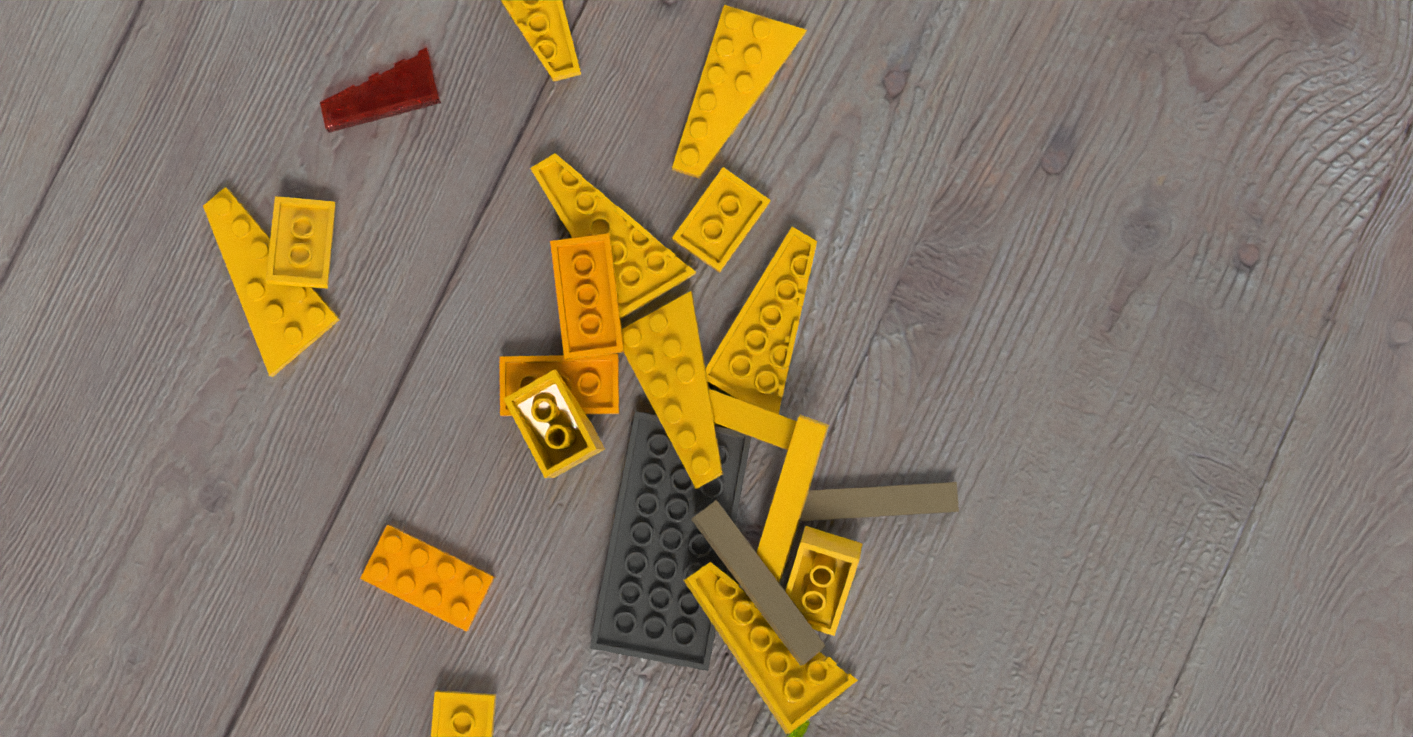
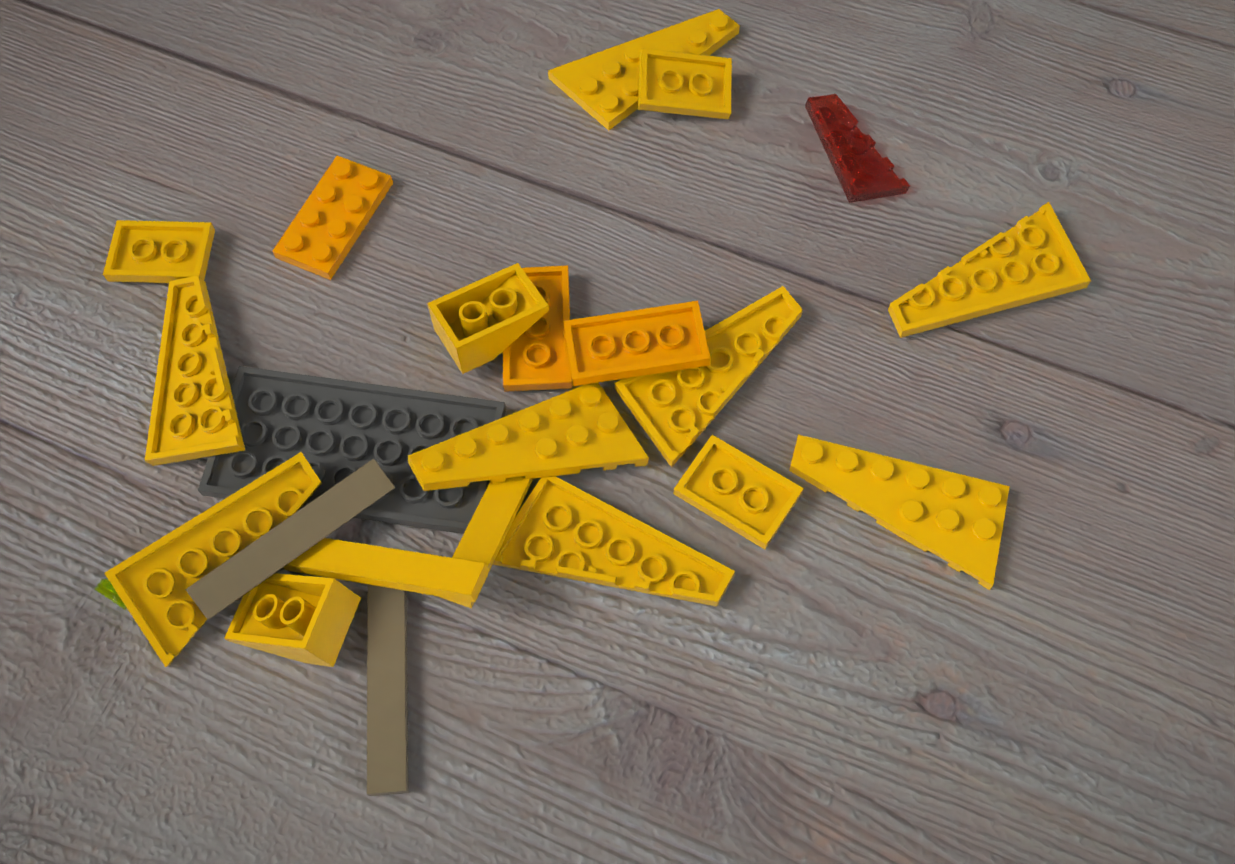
camera: 90 degrees right, 20 degrees down
(614, 688) = (192, 392): none -> yellow wing

